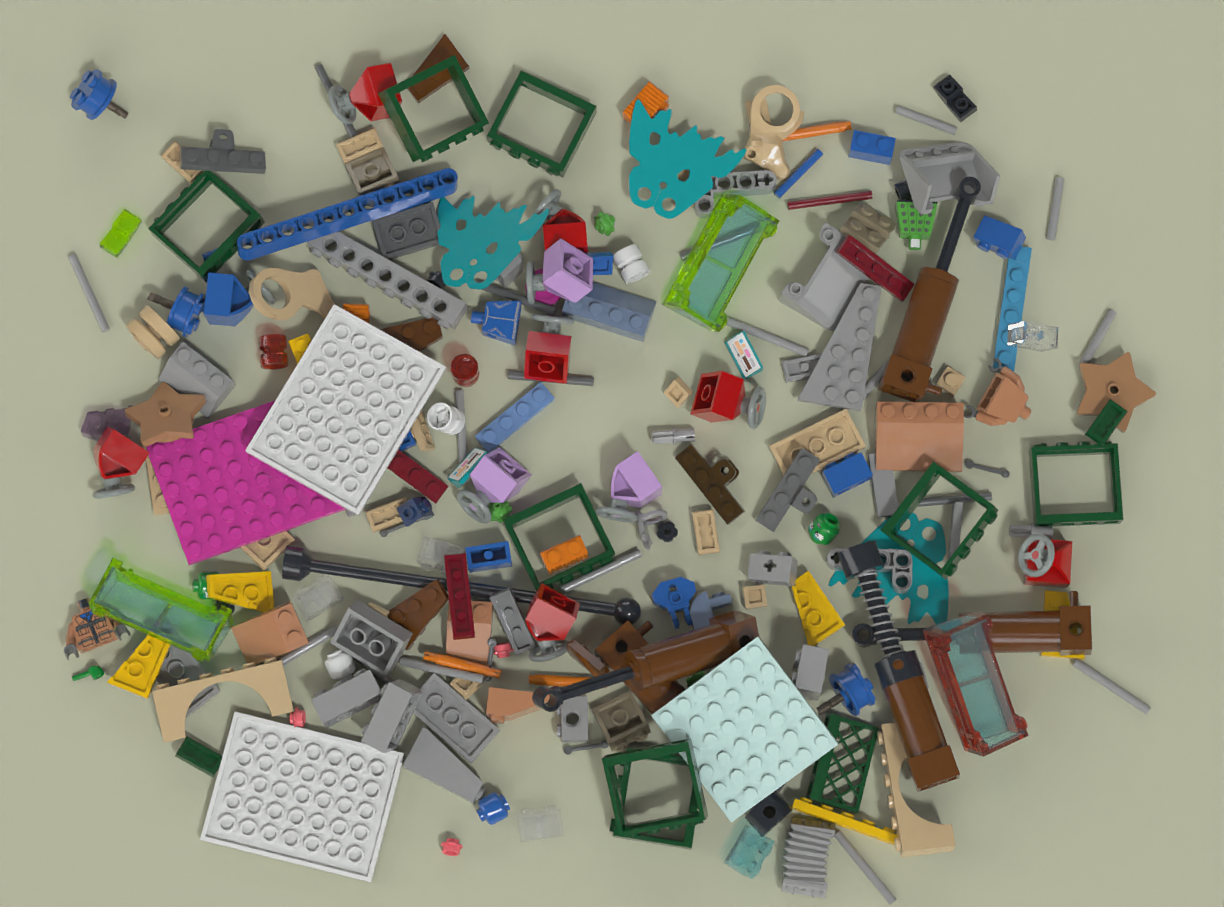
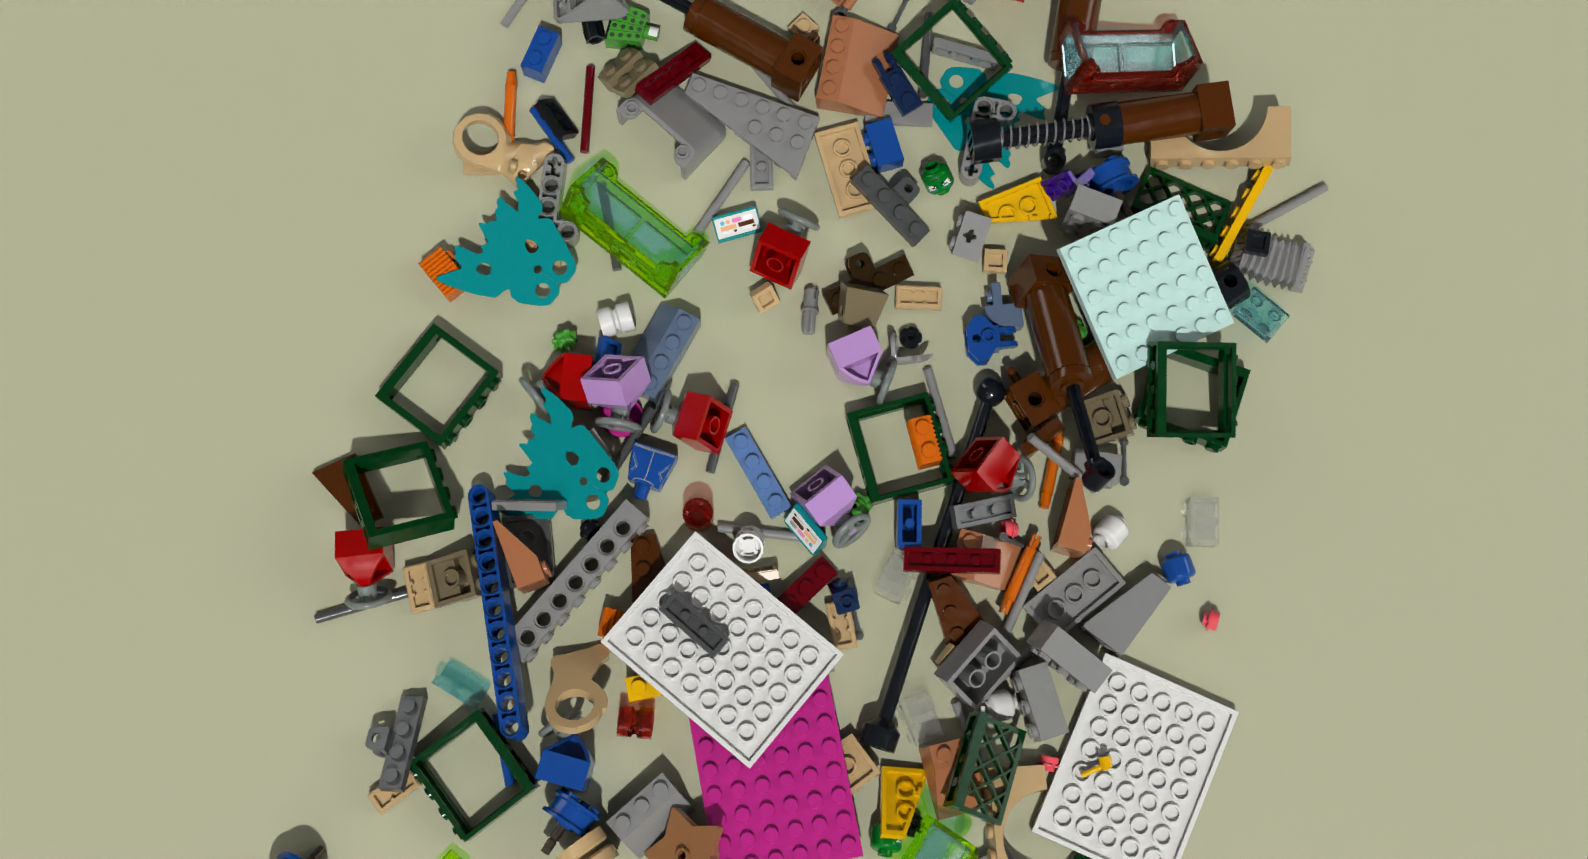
camera: 85 degrees left, 0 degrees up
(282, 199) = (462, 684): none -> clear light blue panel
(283, 637) = (968, 757): none -> dark green fence
(304, 765) = (1105, 763): none -> yellow hand
(361, 379) = (694, 624): none -> dark grey plate
(394, 224) = (525, 566): none -> nougat slope
(446, 221) = (529, 504): none -> light grey tile
(516, 742) = (1110, 532): none -> white head
(569, 675) = (1055, 457): none -> light grey bar
(684, 478) = (860, 306): none -> dark tan torso
(812, 174) = (556, 119): none -> black plate
(815, 835) = (1257, 243): none -> black plate
(841, 654) = (1066, 183): none -> dark purple bracket
(906, 477) = (897, 86): none -> dark blue hinge

